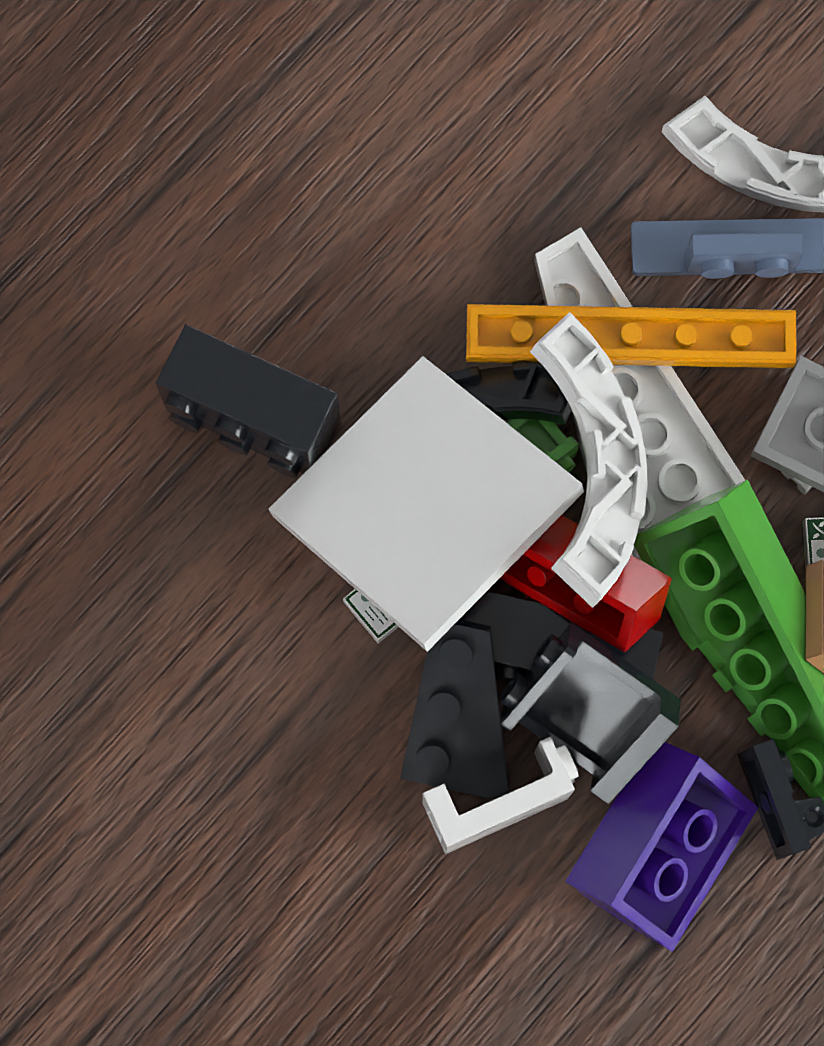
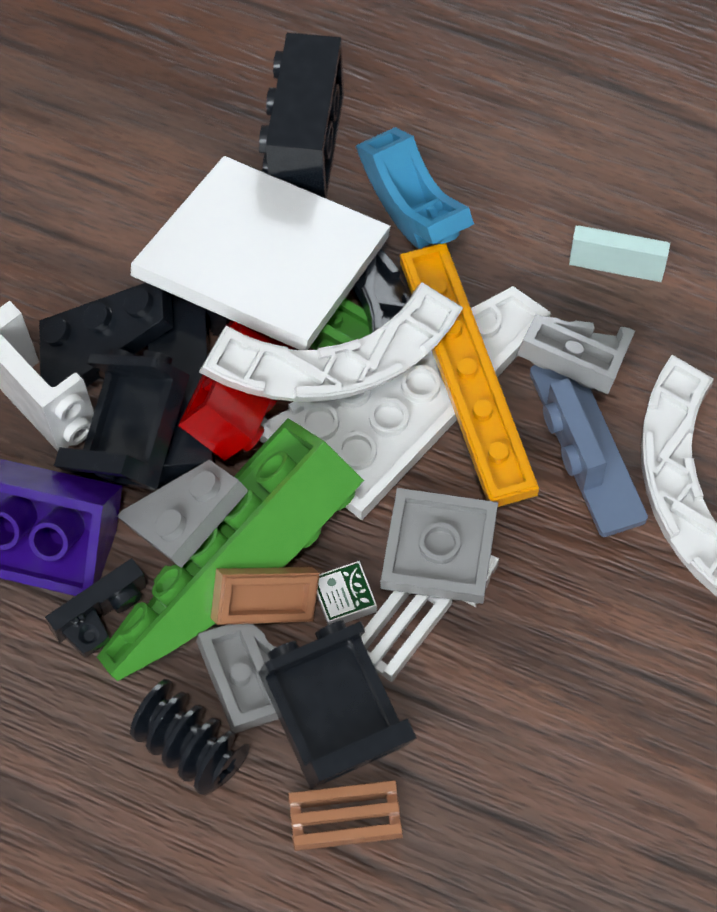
camera: 75 degrees right, 15 degrees down
(385, 320) = (409, 192): none -> dark azure arch
(527, 131) = (619, 253): none -> light aqua tile
(643, 214) = (576, 350): none -> light grey wing
(709, 677) = (185, 511): none -> light grey wing

